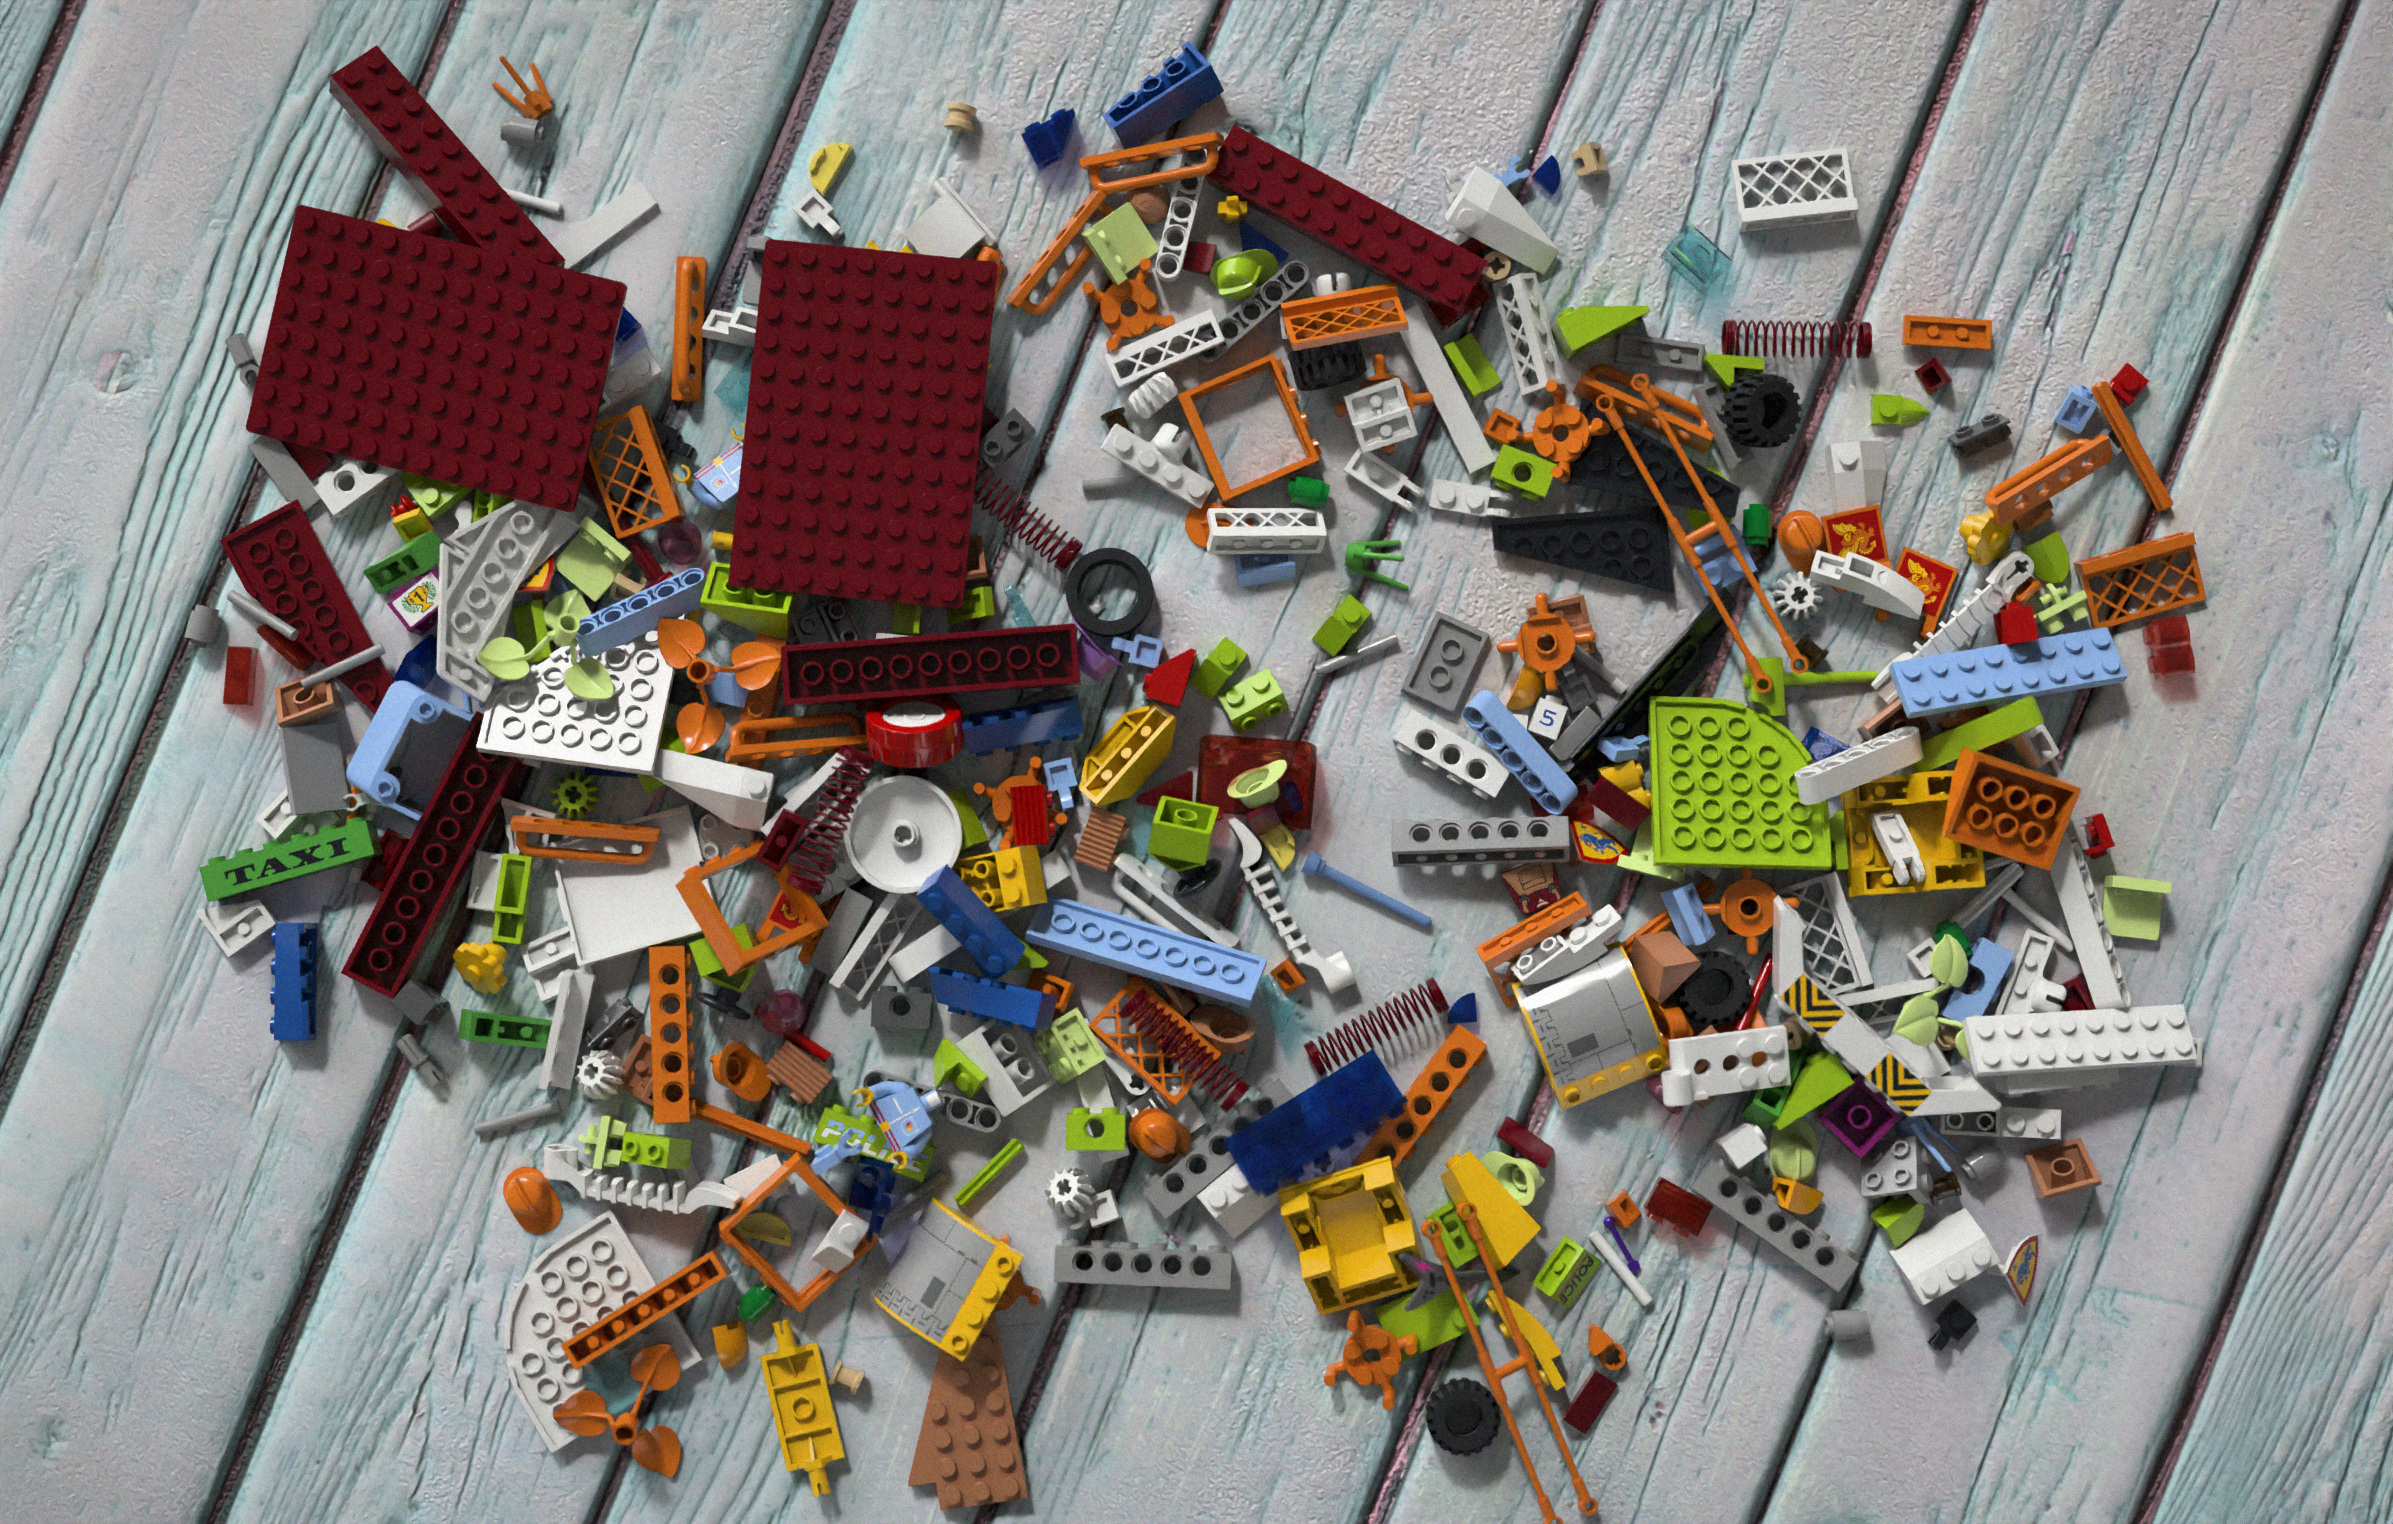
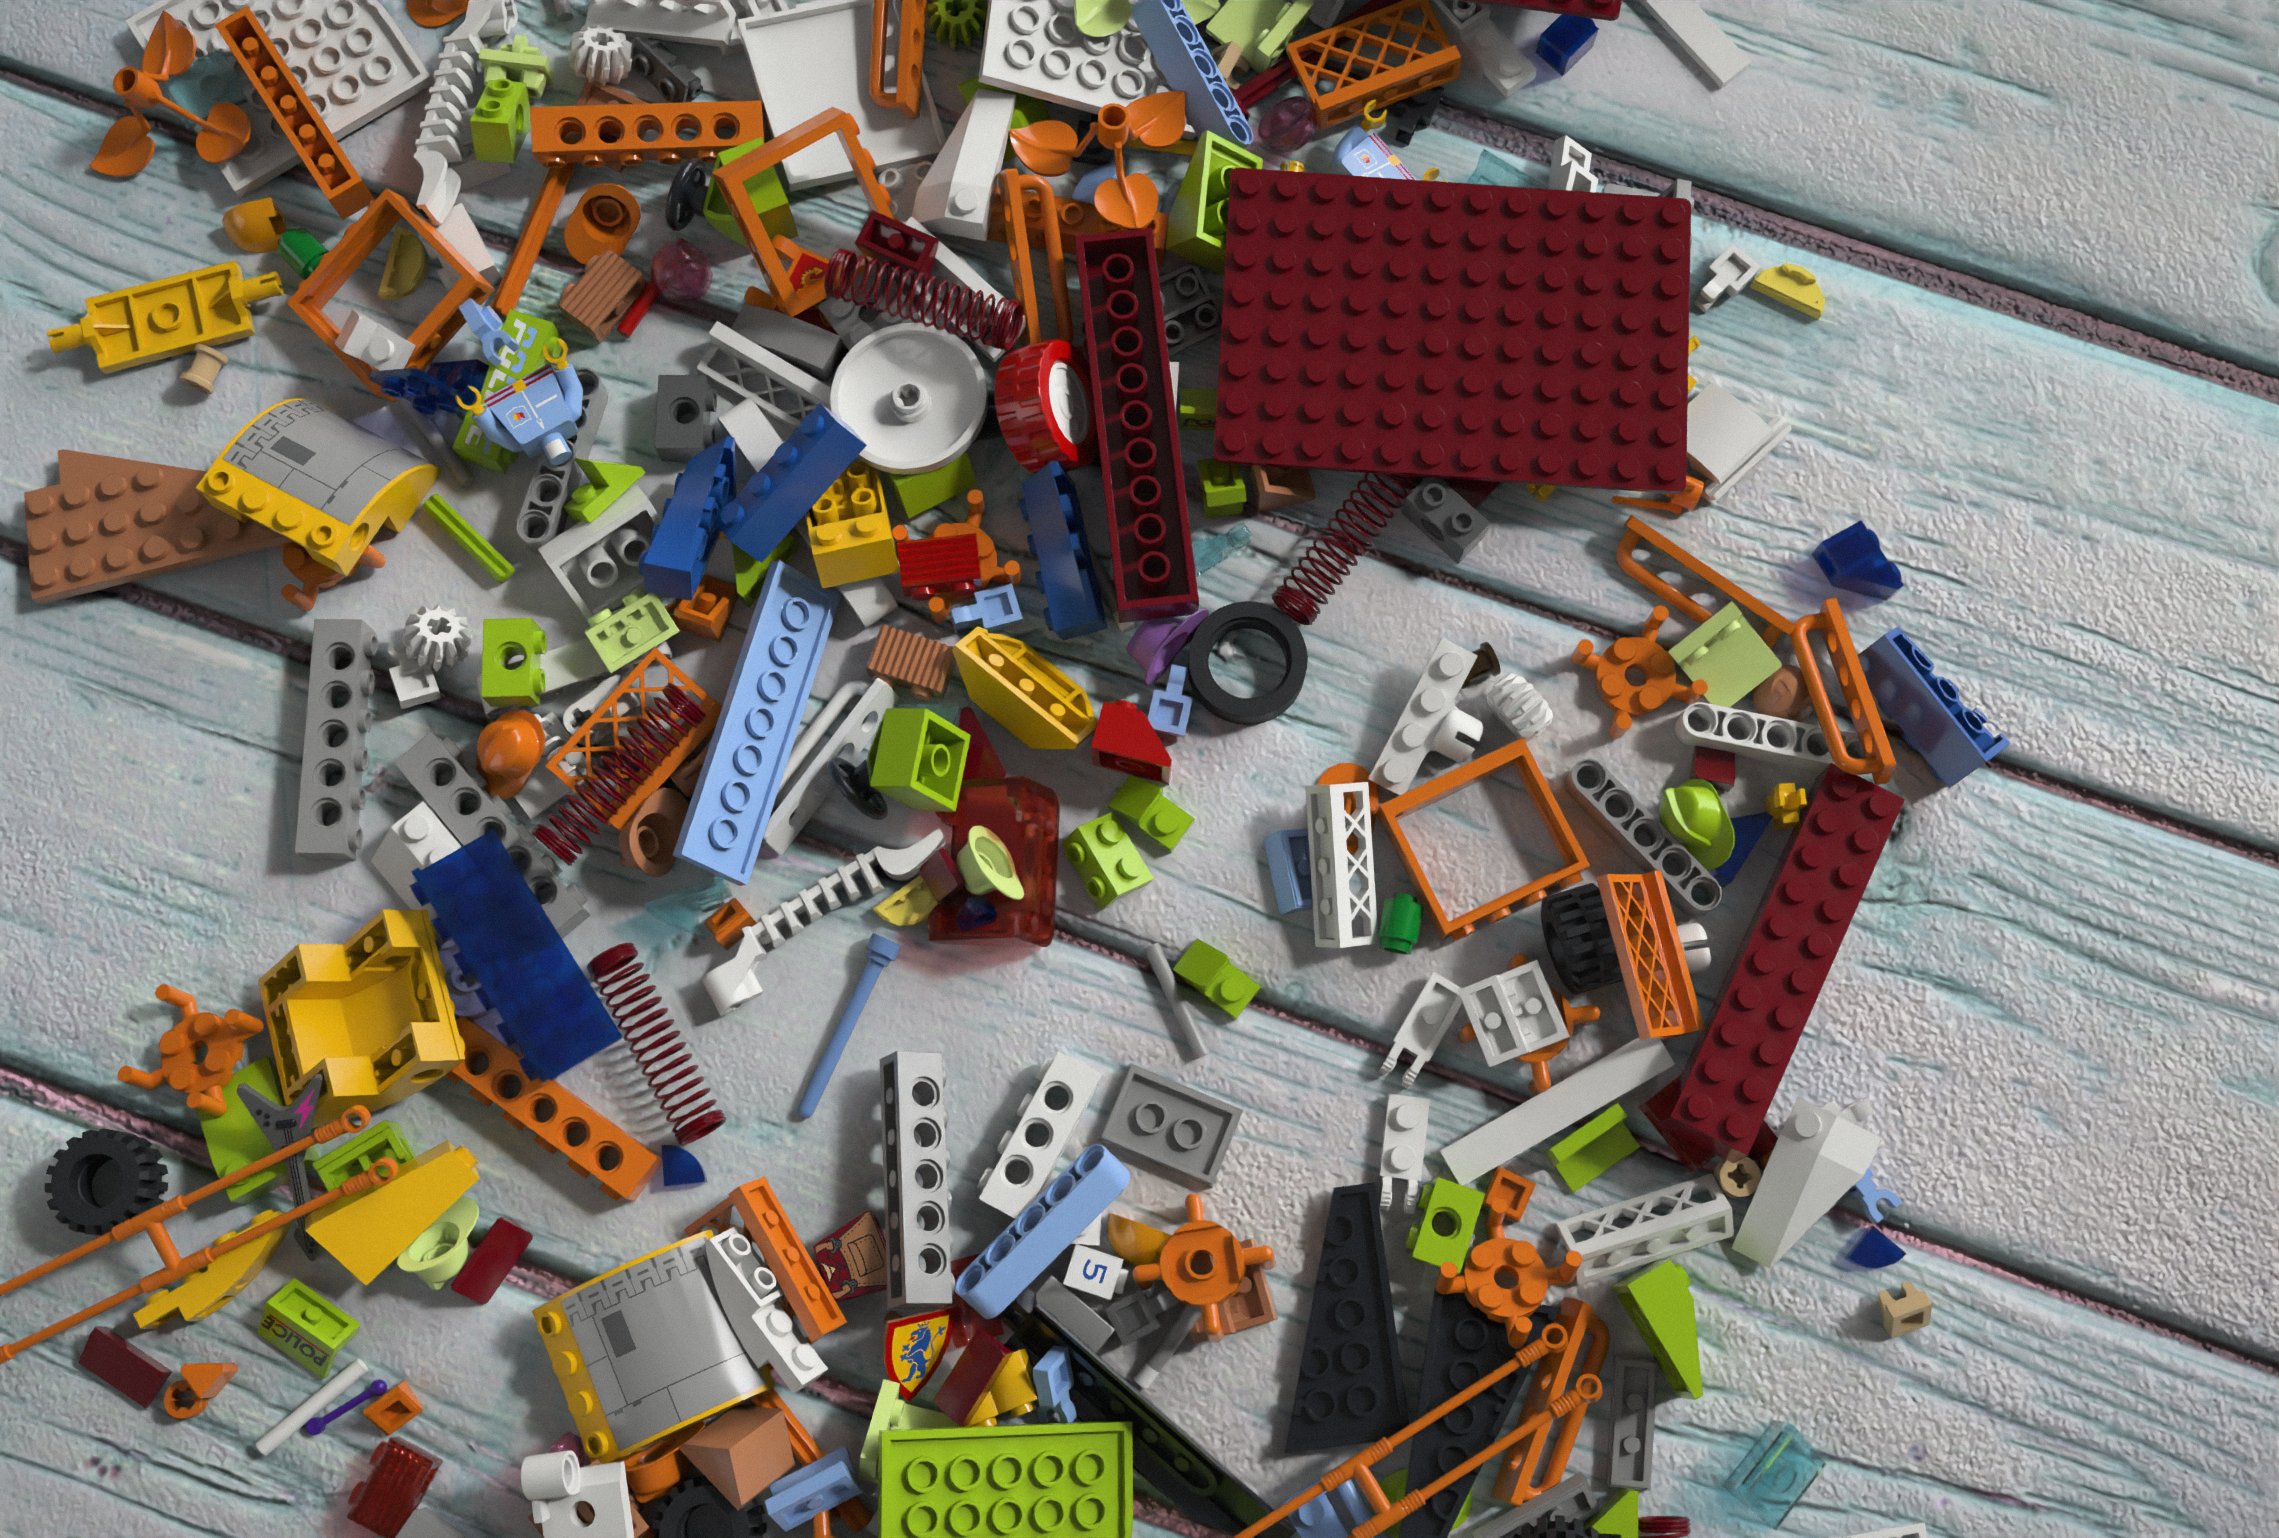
camera: 85 degrees right, 10 degrees down
(687, 270) = (1638, 118): orange piece -> none
(960, 117) = (1874, 447): tan wheel -> none
(1116, 483) = (1395, 667): light grey bar -> none
(1162, 342) = (1592, 714): white fence -> none
(1360, 555) = (1316, 999): bright green plant -> none

